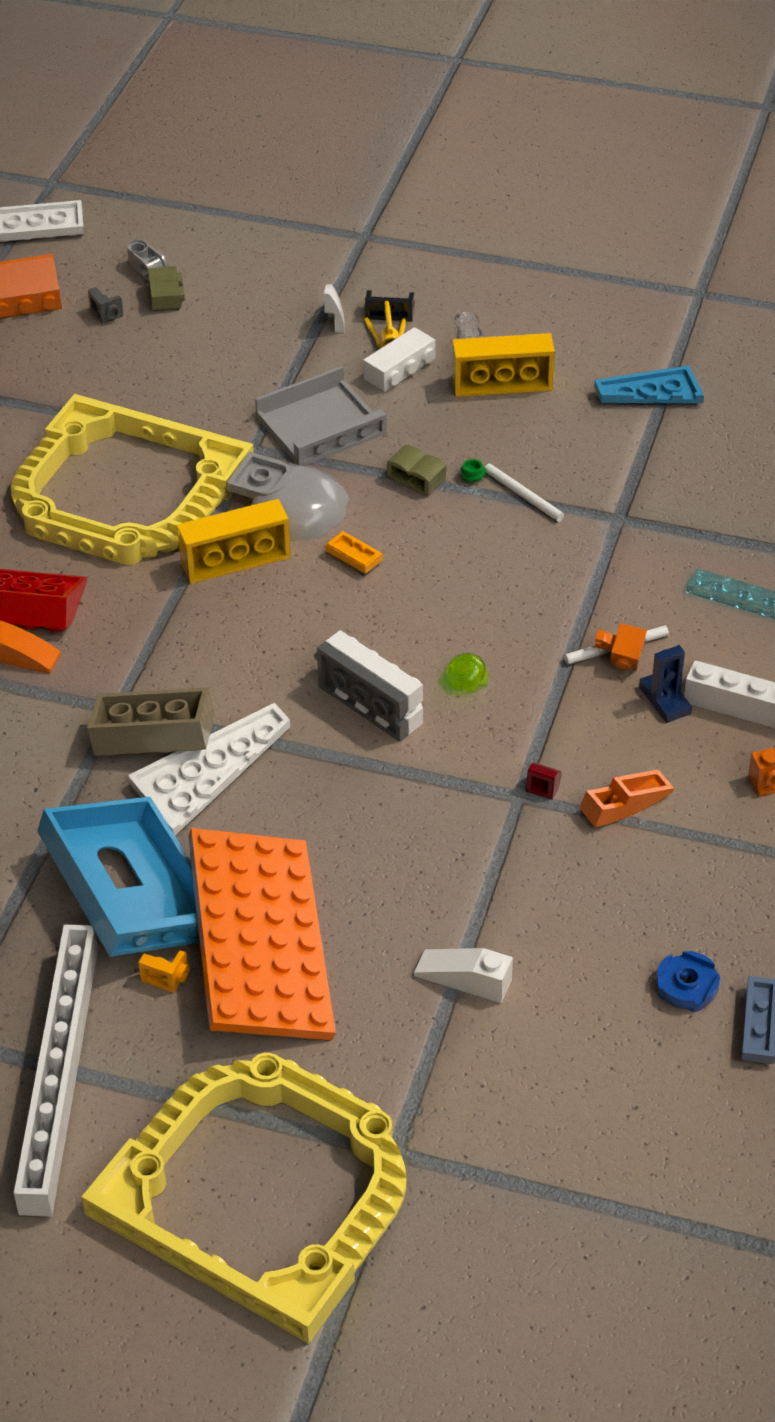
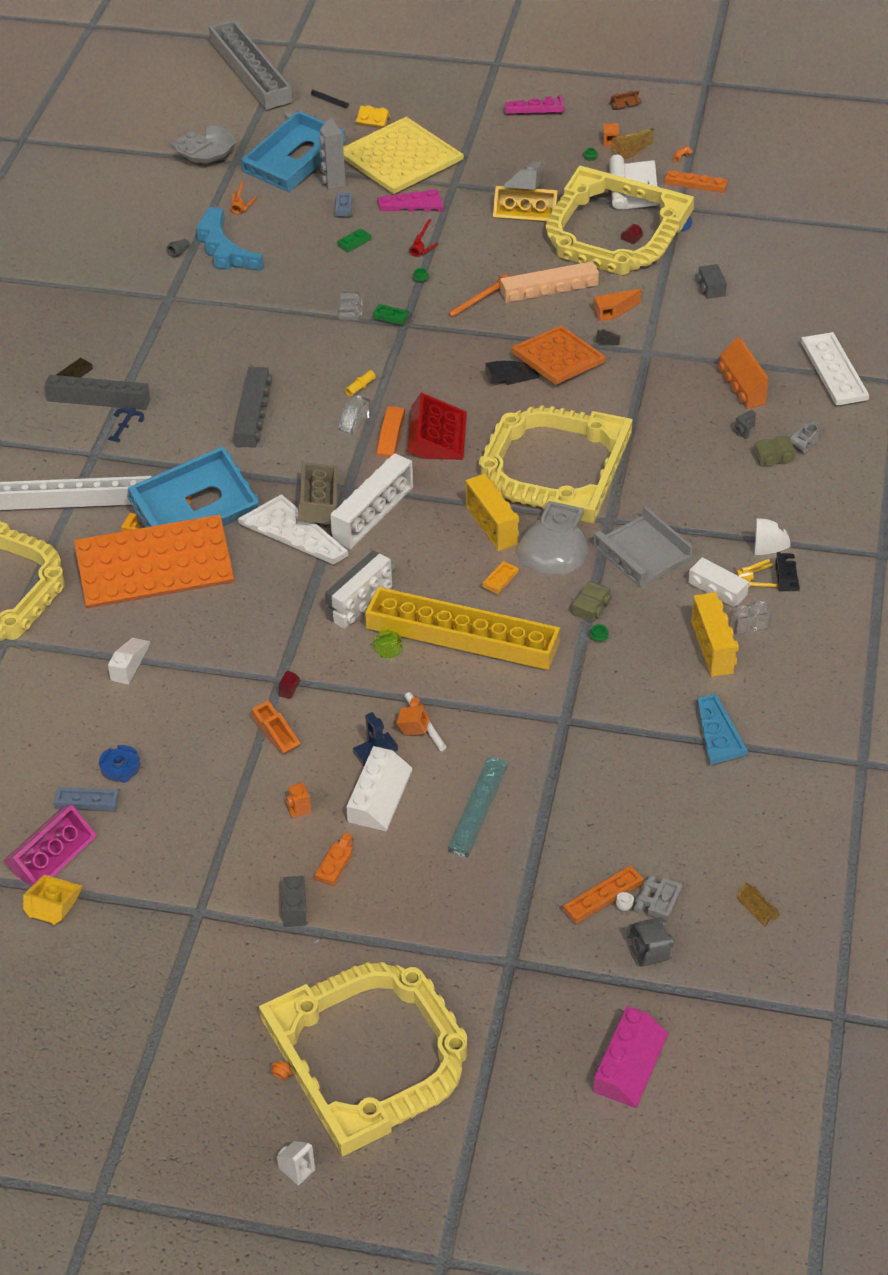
camera: 85 degrees right, 0 degrees up
(179, 660) = (372, 501): none -> white brick
(459, 586) = (463, 628): none -> yellow brick
(524, 492) = (582, 663): white bar -> none

